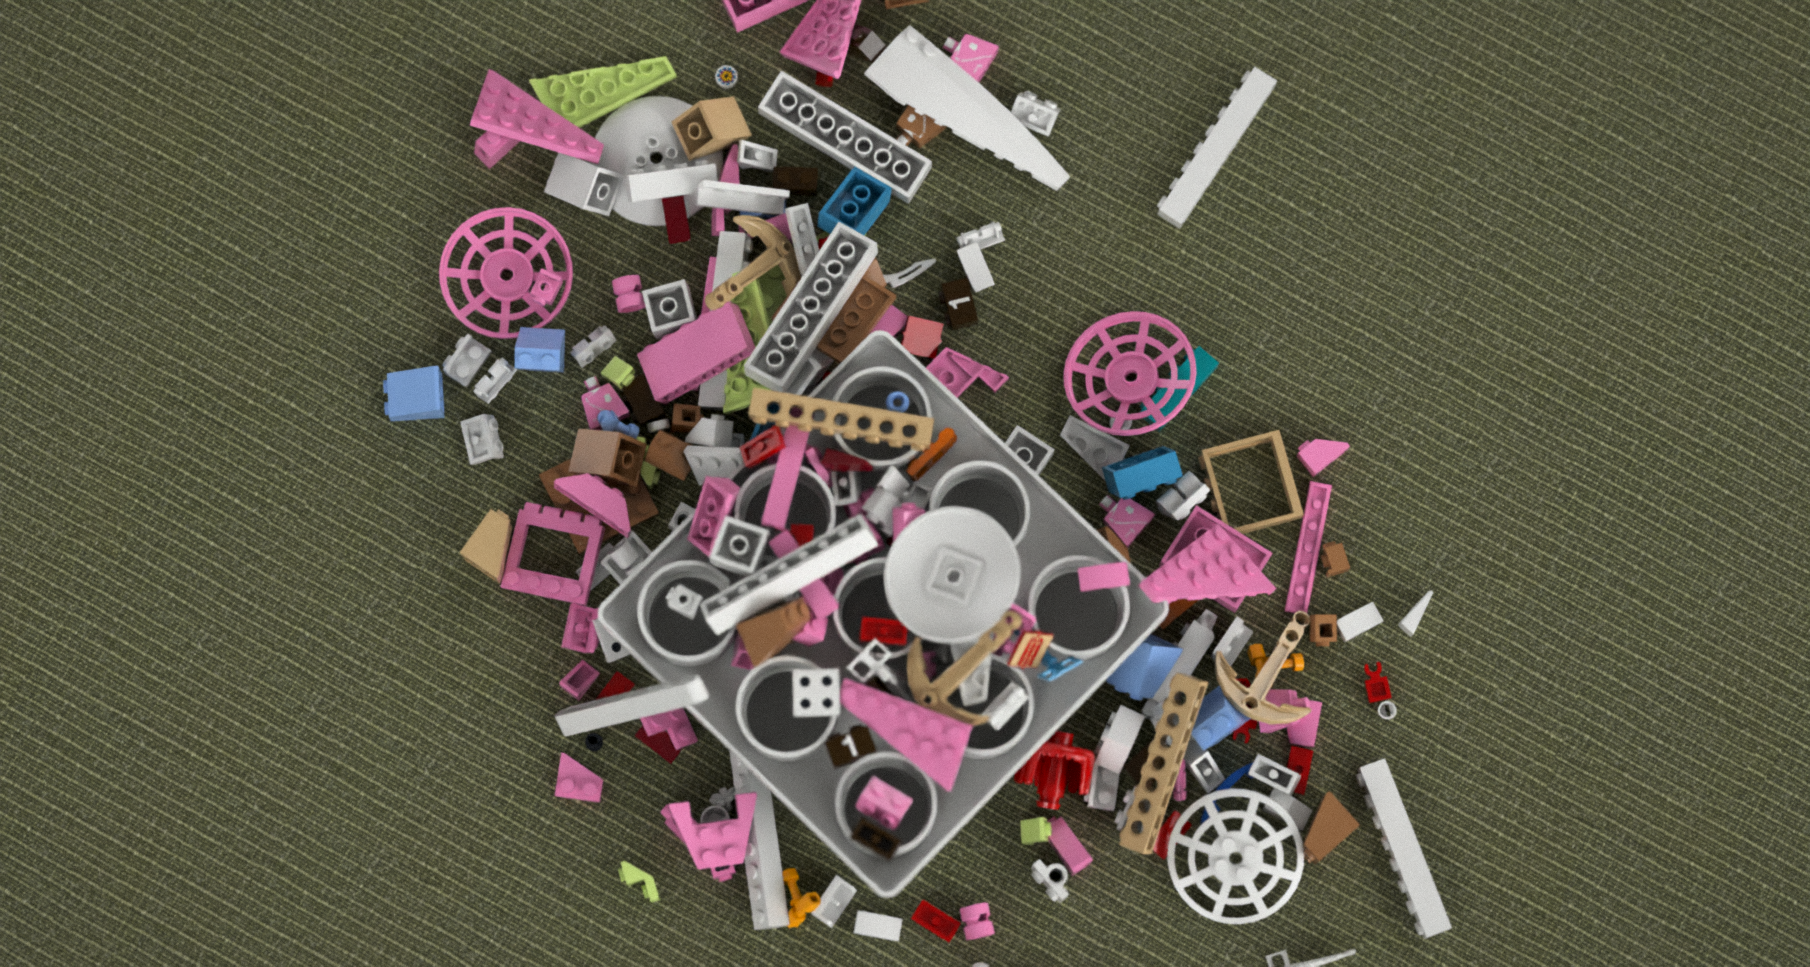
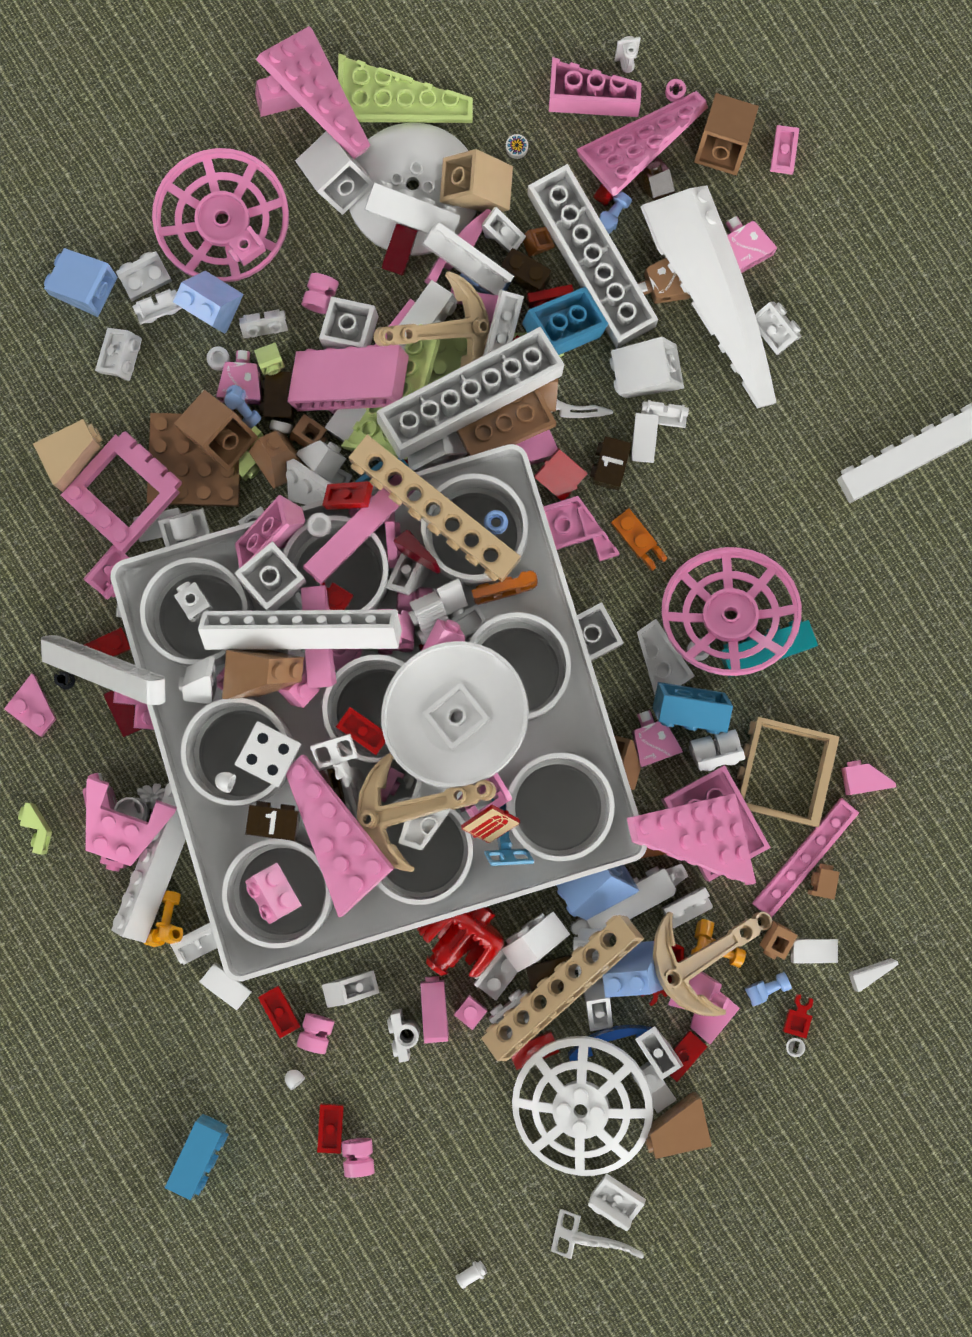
camera: 30 degrees right, 5 degrees up
(570, 396) = (217, 357): none -> white tile
(579, 680) = (82, 617): bright pink slope -> none
(597, 499) = (183, 463): bright pink wedge -> none
(724, 666) = (199, 681): none -> white slope
(753, 484) = (319, 525): none -> white tile
(790, 148) = (537, 241): none -> dark orange slope
(793, 733) = (225, 781): none -> white hinge
(822, 195) = (540, 297): none -> red plate
(841, 96) = (610, 218): none -> light blue leg
(875, 840) = (243, 925): dark brown brick -> none
(944, 207) = (646, 368): none -> white slope
(985, 868) = (350, 989): none -> white slope
(1005, 705) = (437, 864): white hinge -> none
(1016, 355) = (637, 537): none -> orange hinge
(1035, 830) = (412, 982): yellowish green slope -> none
(1098, 830) = (470, 1012): none -> bright pink brick
(1103, 576) = (598, 793): bright pink slope -> none
(1179, 793) = (565, 1017): bright pink axle -> none
(1308, 921) = (616, 1202): none -> white bracket
(1331, 680) = (759, 991): none -> light blue leg
(1403, 848) = (740, 1184): white brick -> none

